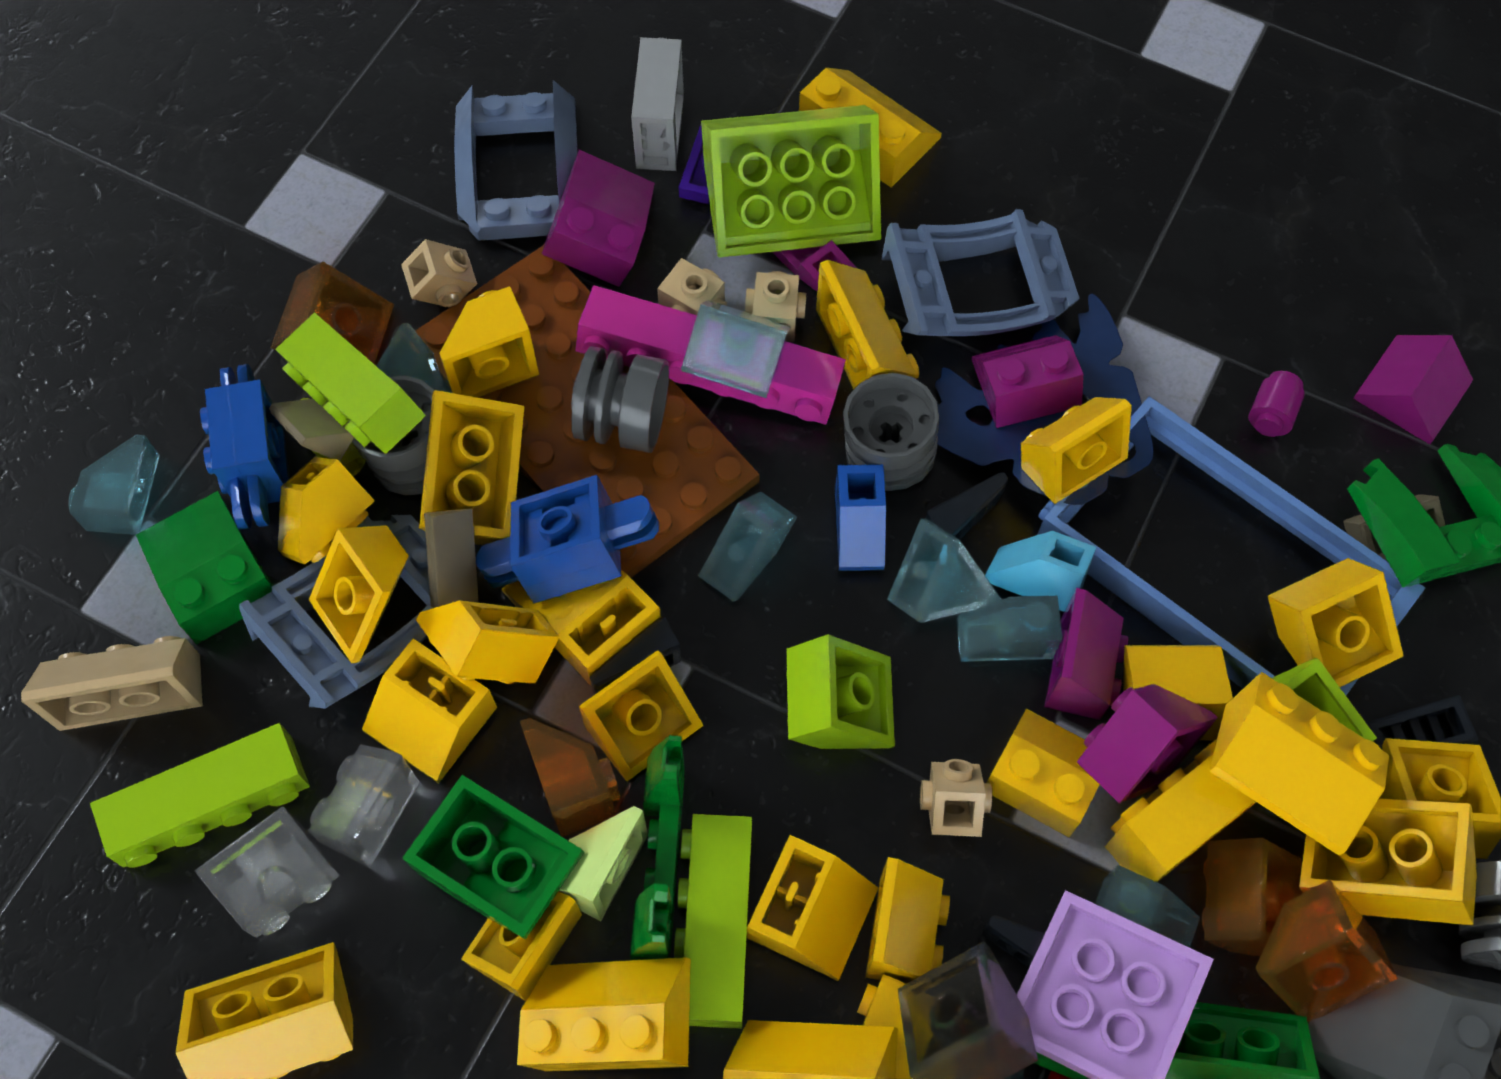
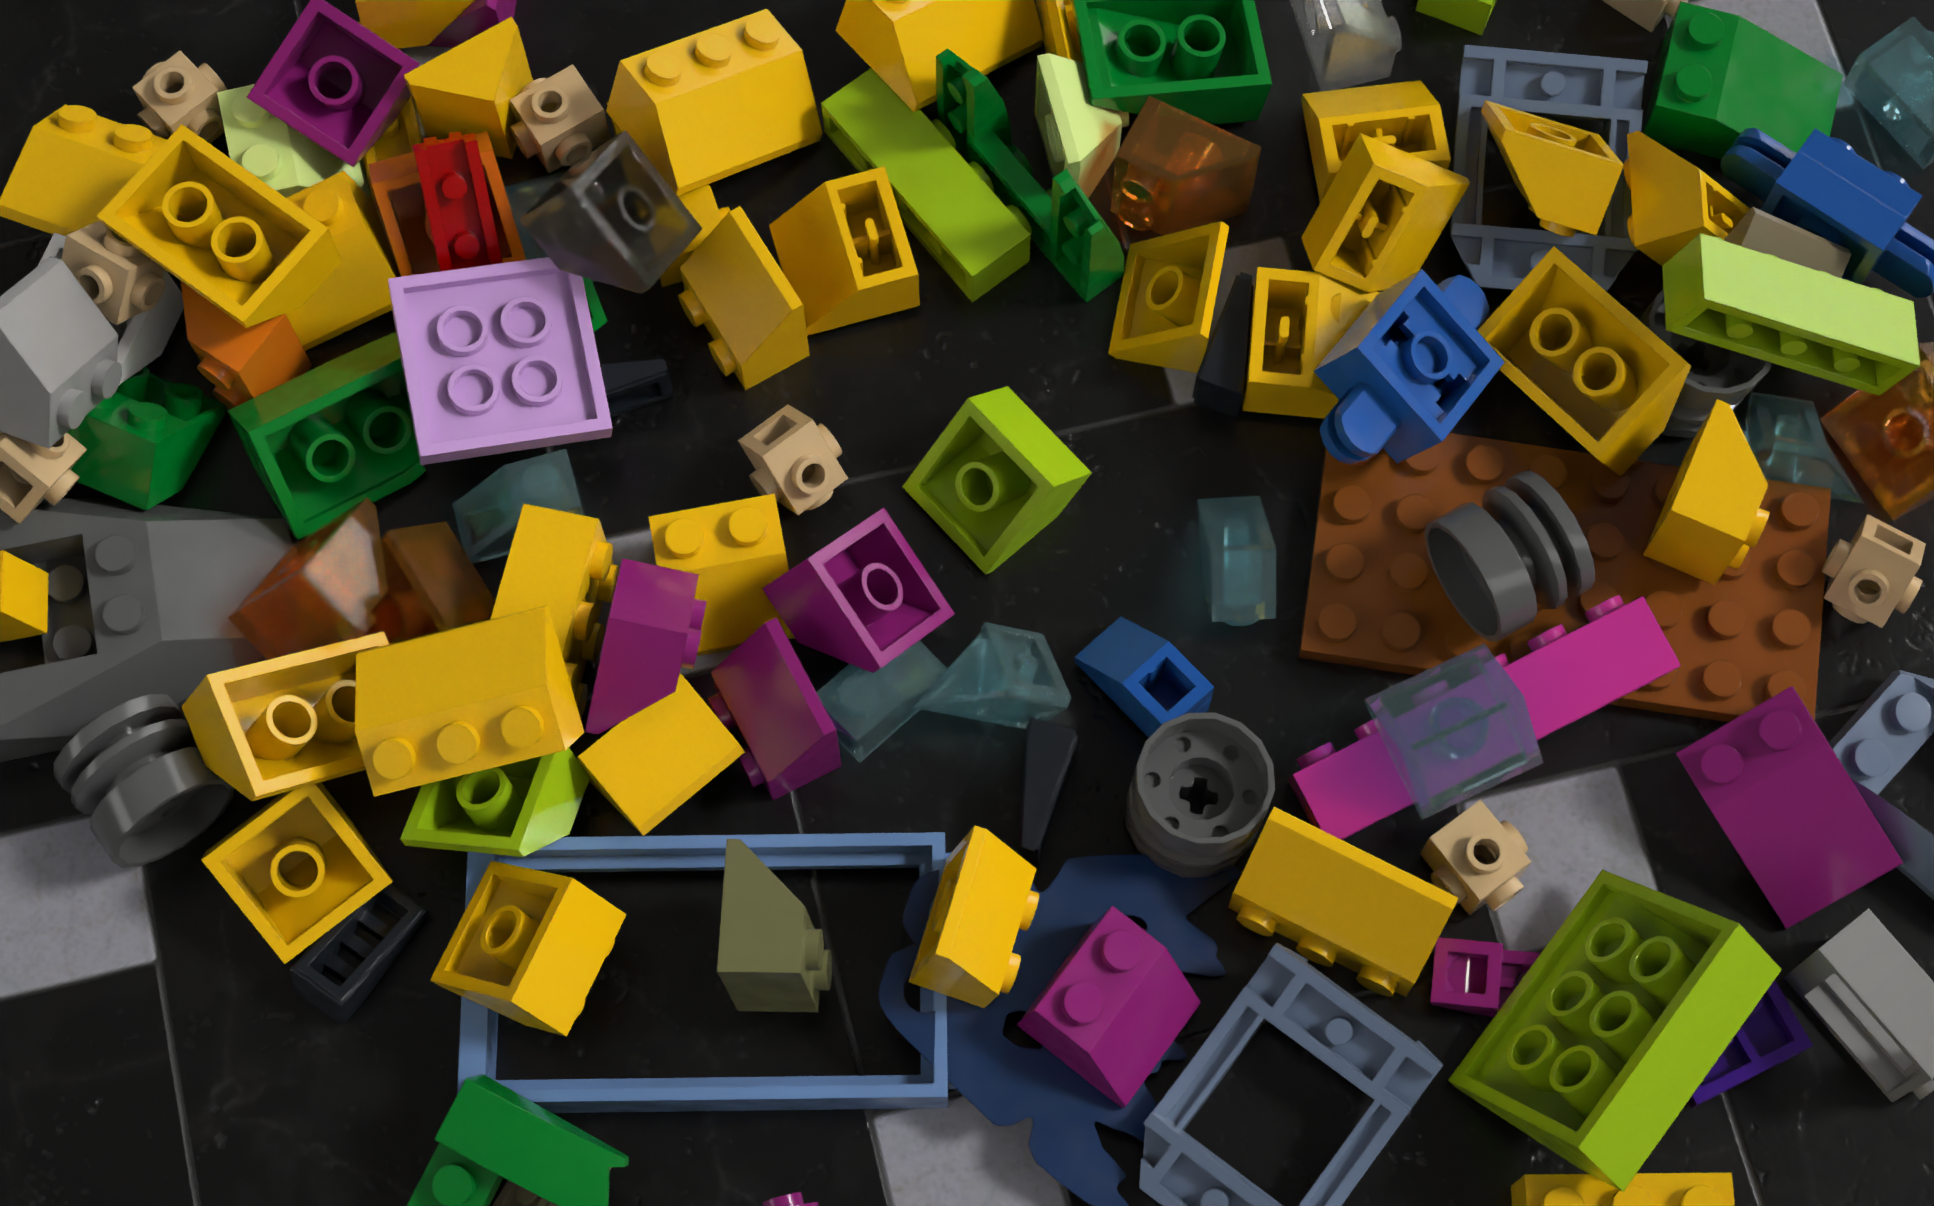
camera: 140 degrees right, 5 degrees up
(451, 556) = (1496, 252): dark tan slope -> none
(689, 287) = (1577, 788): tan brick -> none
(988, 677) = (861, 596): none -> magenta slope
(1042, 566) = (903, 780): medium azure slope -> none
(1198, 510) = (766, 940): none -> olive slope

